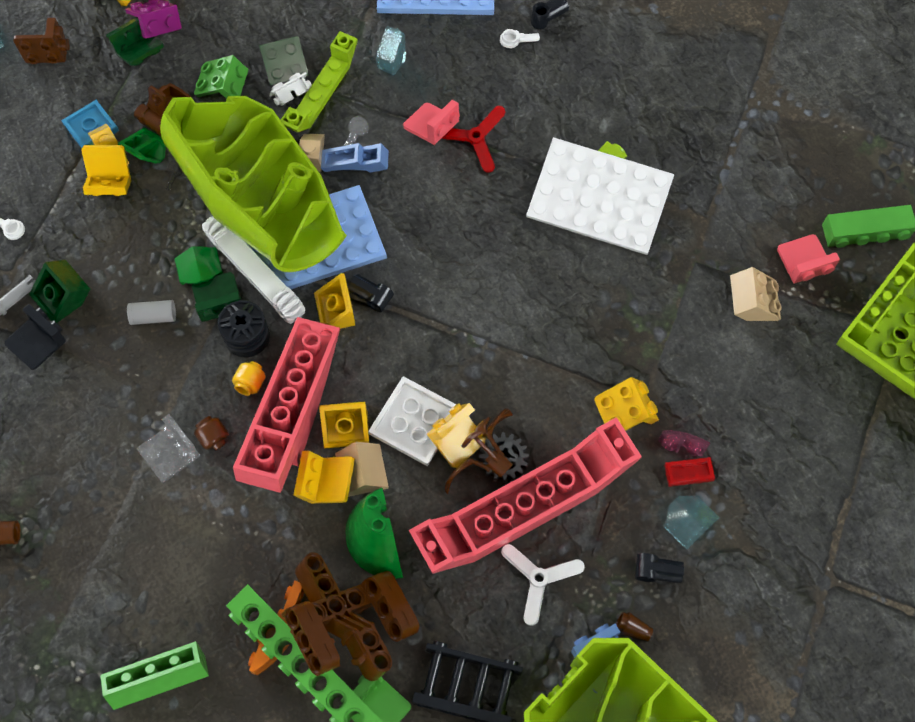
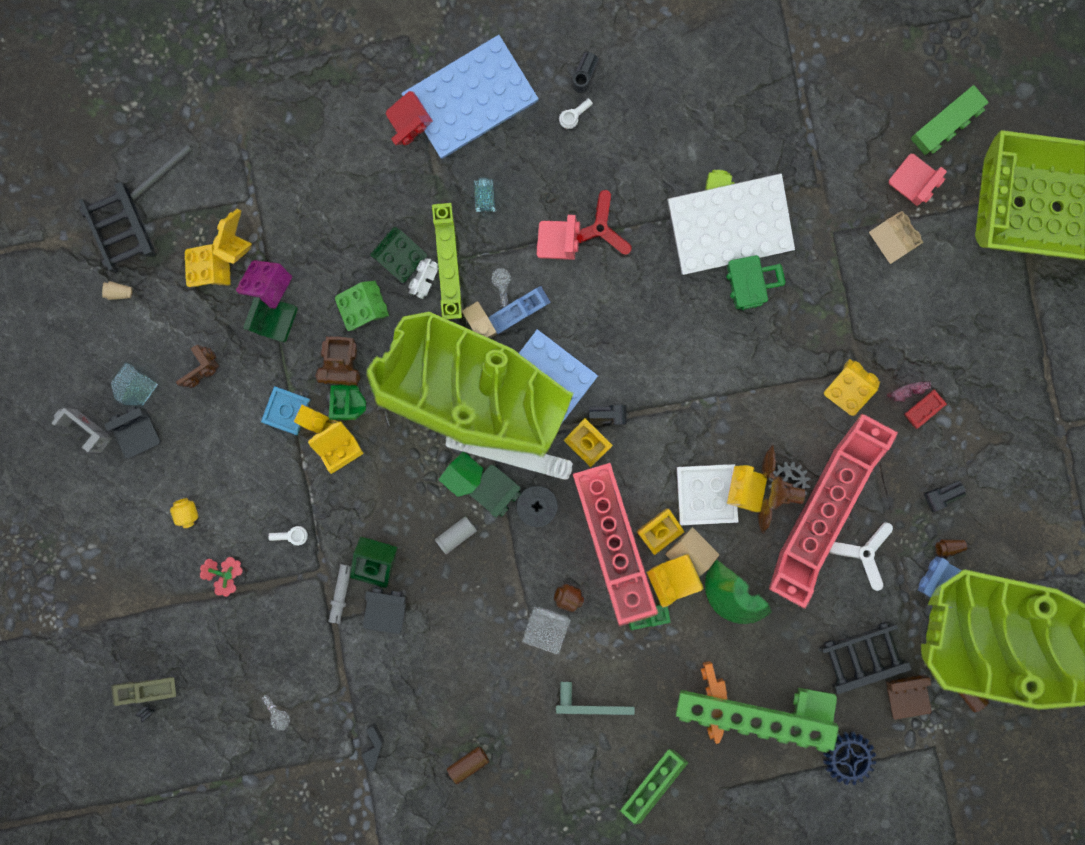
camera: 30 degrees left, 20 degrees up
(130, 539) = (567, 708): none -> sand green piece
(248, 378) = (566, 540): yellow head -> none
(275, 503) = (661, 618): none -> green slope
(313, 619) = (739, 692): reddish brown piece -> none
(584, 254) = (748, 281): none -> green piece
(689, 519) = (945, 444): clear light blue slope -> none

